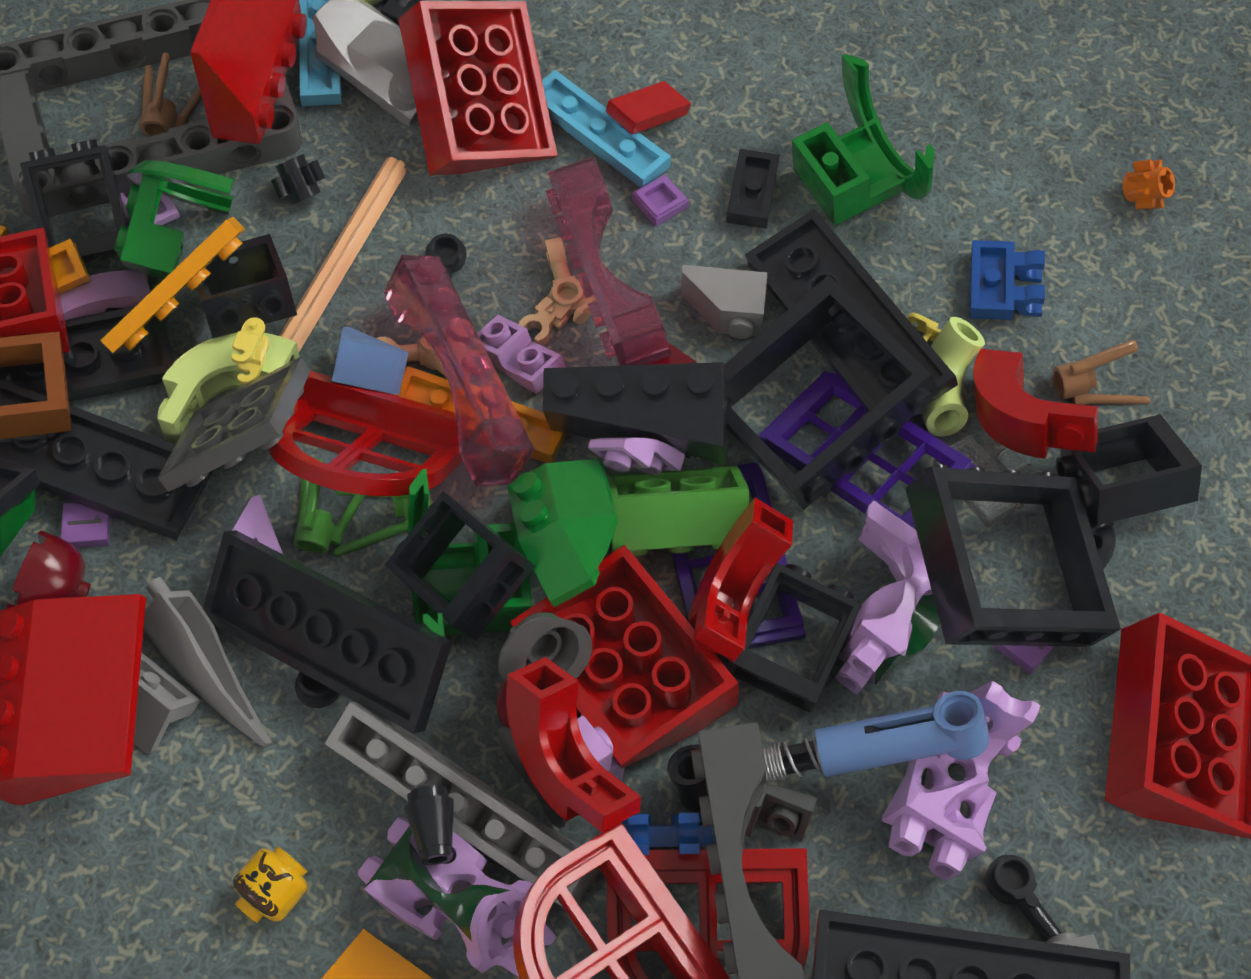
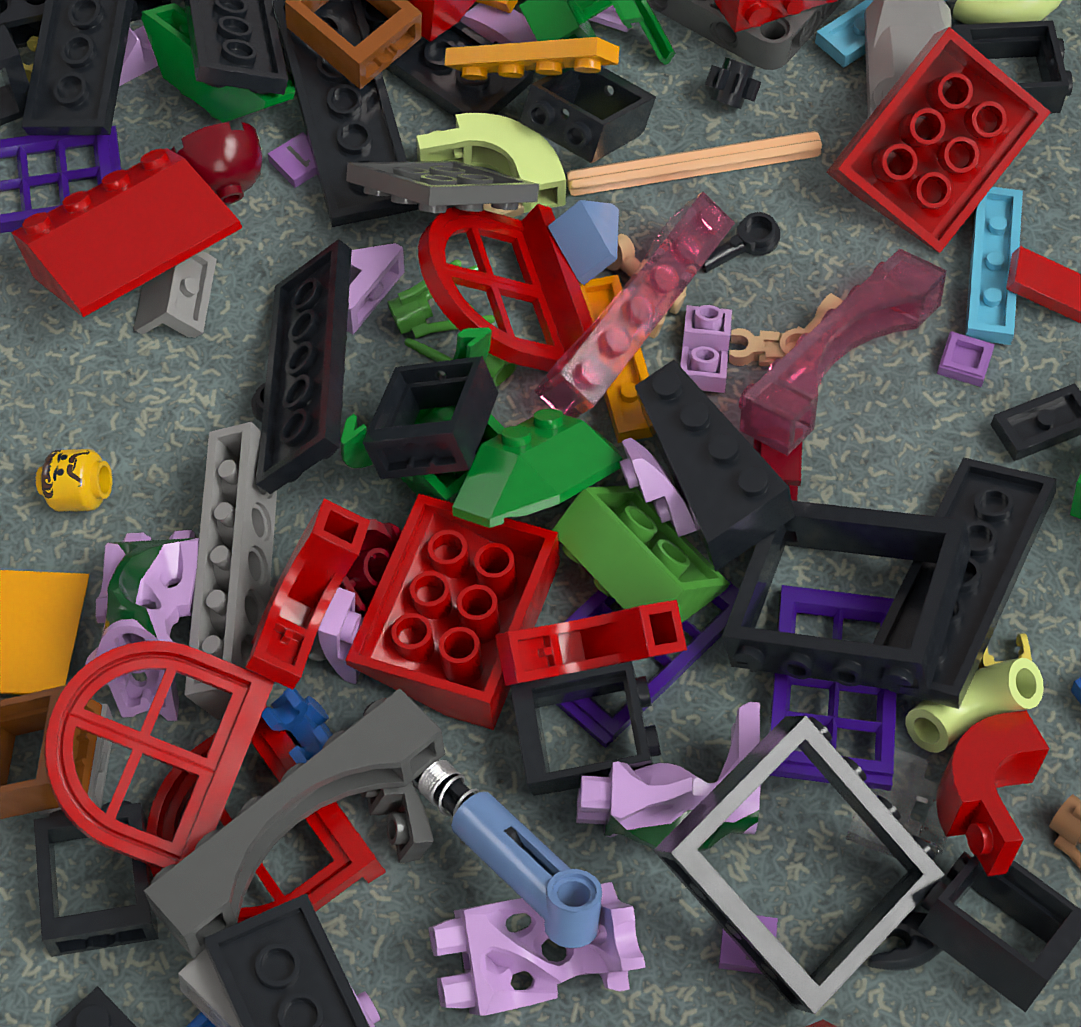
camera: 55 degrees right, 0 degrees up
(193, 649) = (241, 302): light grey piece -> none
(253, 346) = (527, 148): light yellow piece -> none
(431, 822) = (182, 545): black cone -> none
(546, 636) = (399, 526): dark grey piece -> none
(726, 298) = (904, 472): light grey slope -> none

